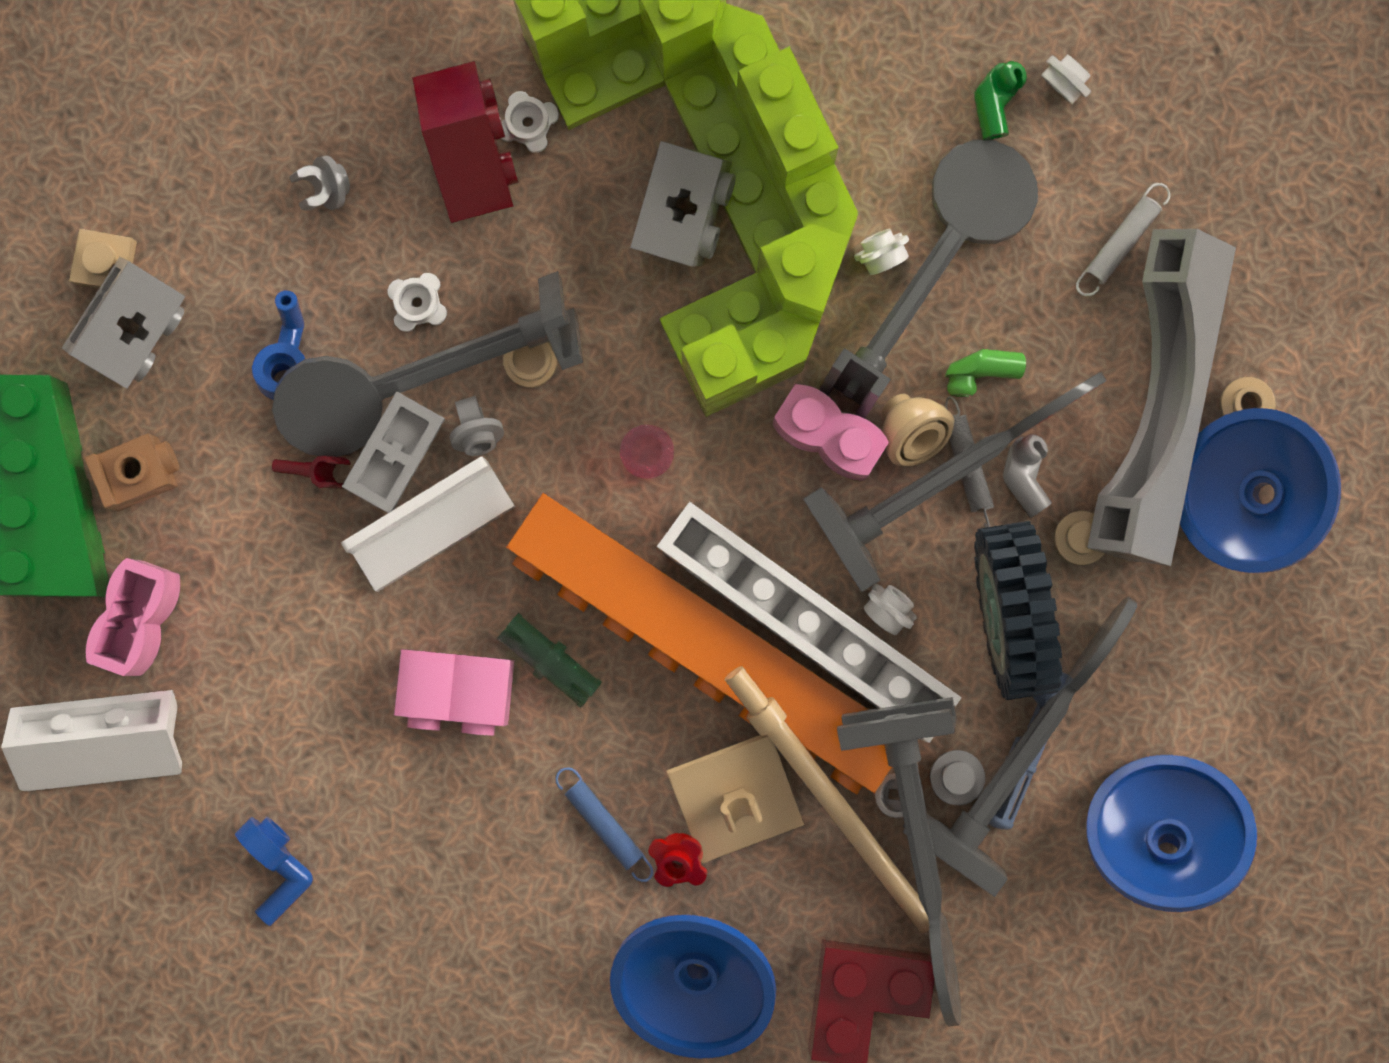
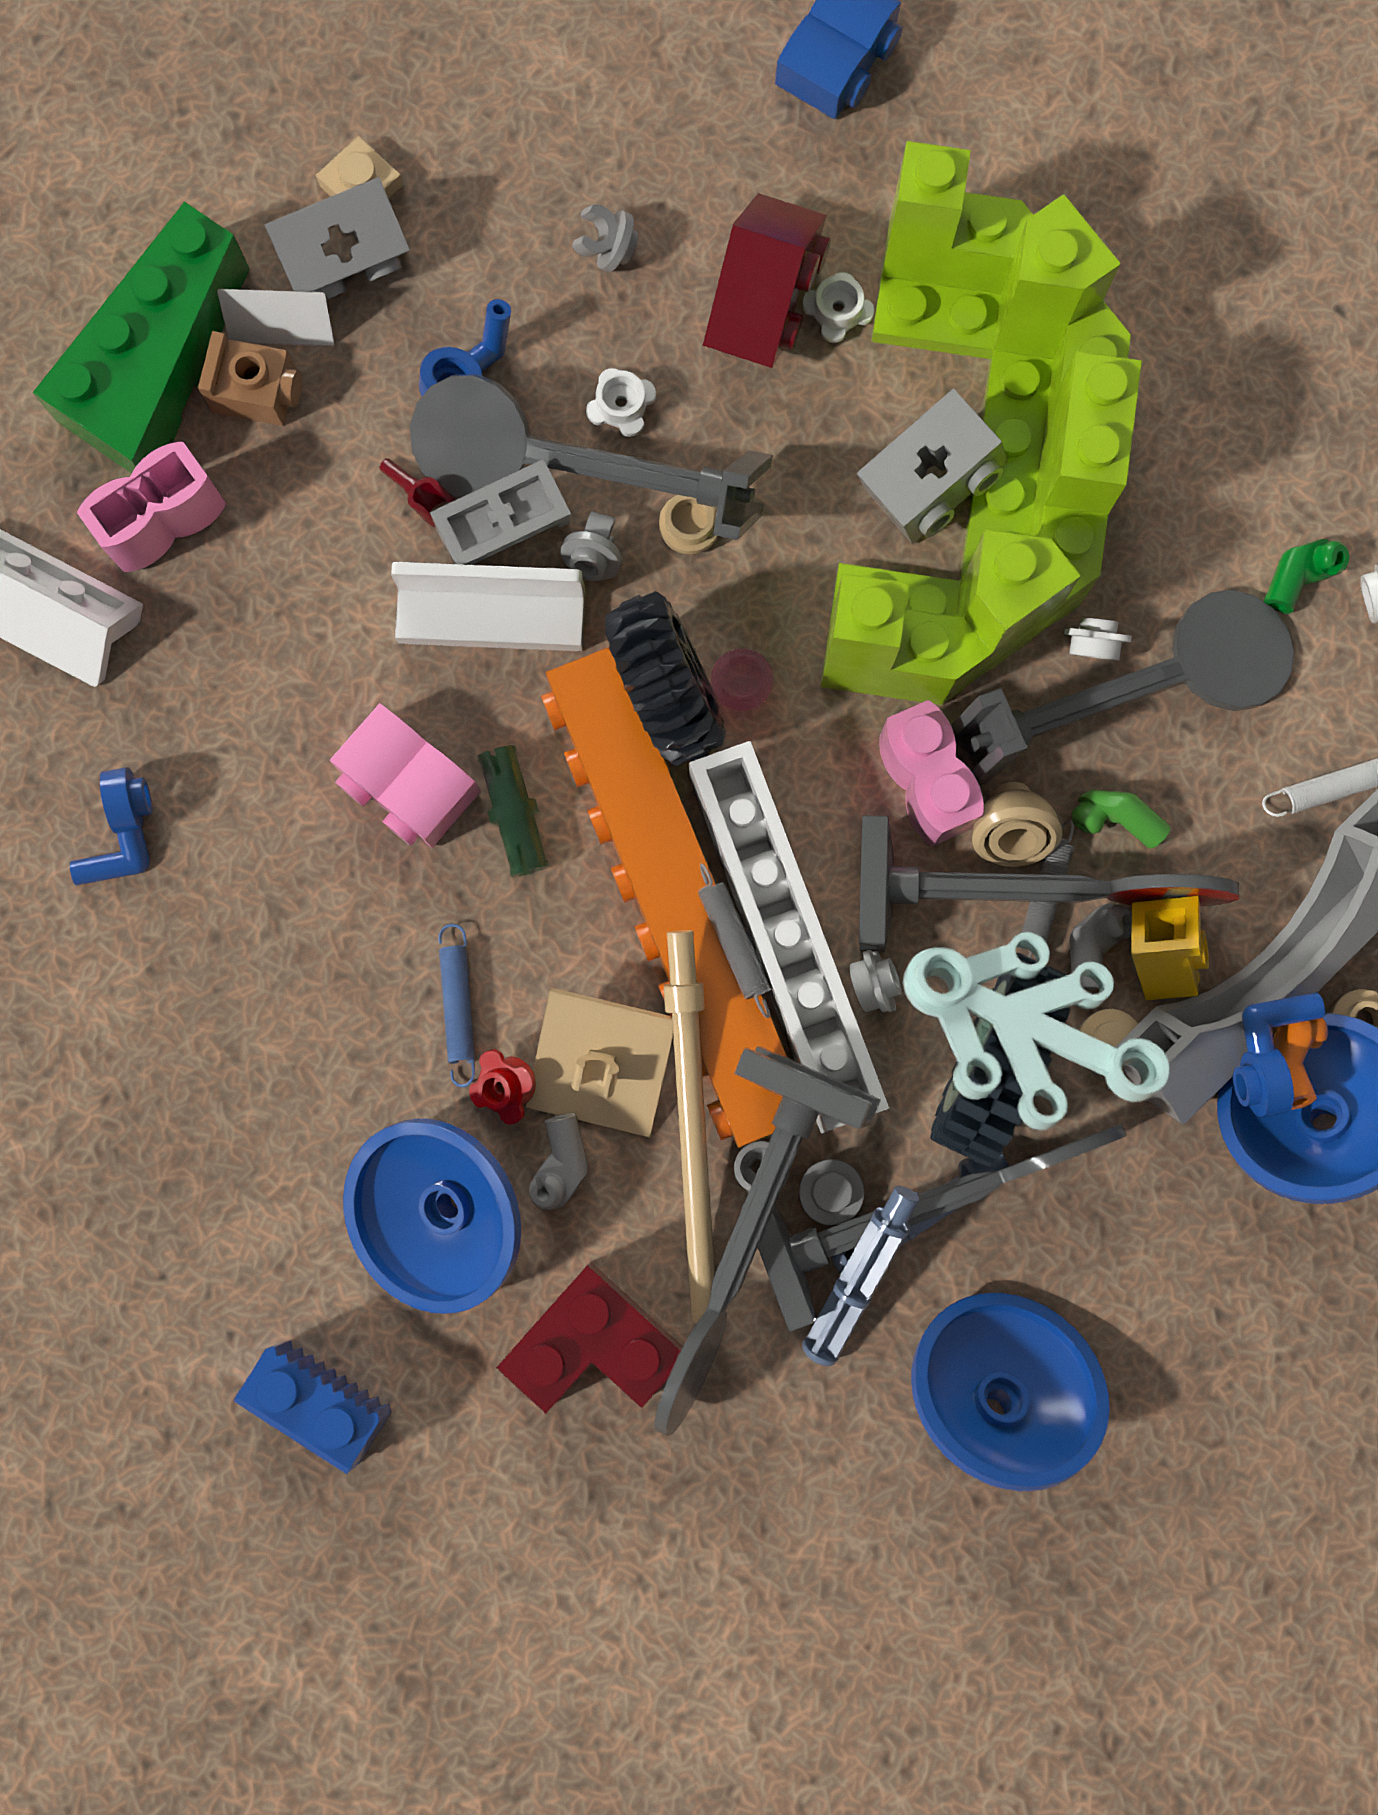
camera: 30 degrees right, 5 degrees down
(119, 411) = (276, 317): none -> white sticker
(597, 497) = (664, 678): none -> black gear
(759, 887) = (564, 1166): none -> light grey arm
(774, 652) = (734, 940): none -> light grey piece
(1017, 587) = (1022, 1022): none -> light aqua plant
(1018, 825) = (860, 1278): none -> sand blue piece
(1079, 447) = (1168, 947): none -> yellow brick
(1204, 498) = (1263, 1074): none -> blue plate
(1210, 466) = (1294, 1044): none -> orange arm

